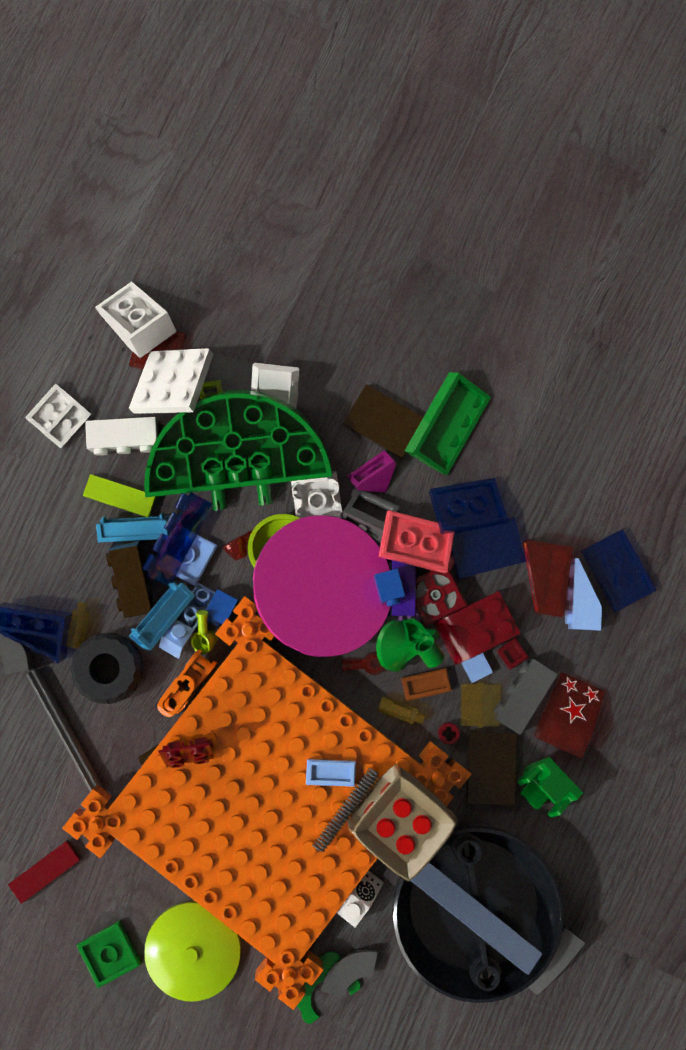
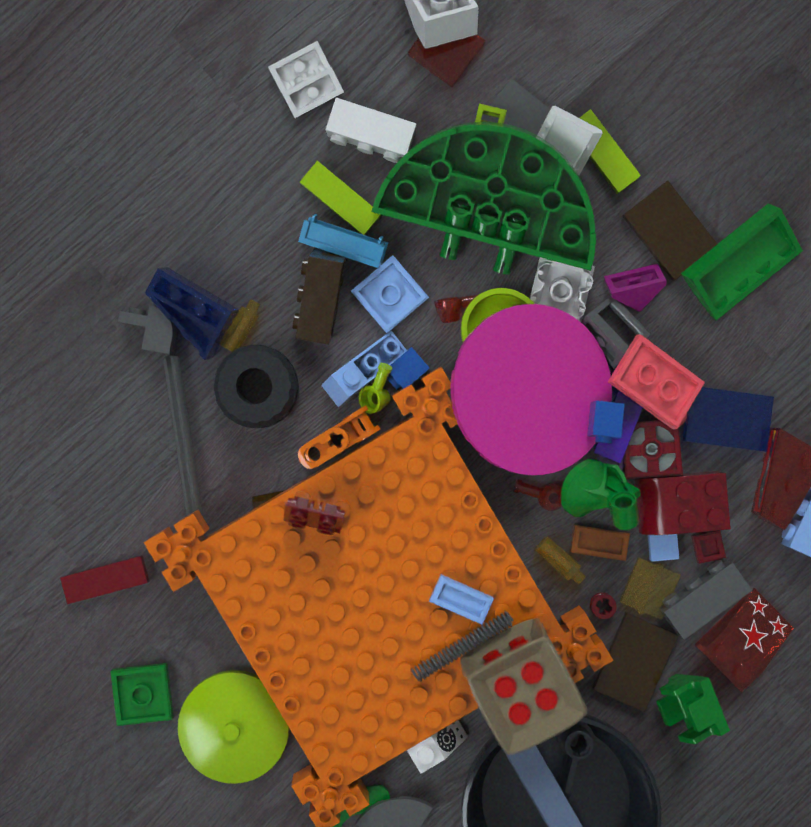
camera: 25 degrees right, 5 degrees up
(162, 616) = (339, 352): dark azure container -> none
(171, 381) = (452, 89): white plate -> none
(182, 533) = (384, 279): clear blue windscreen -> none
(314, 383) = (610, 158): none -> lime tile
(468, 506) = (728, 364): clear blue tile -> none

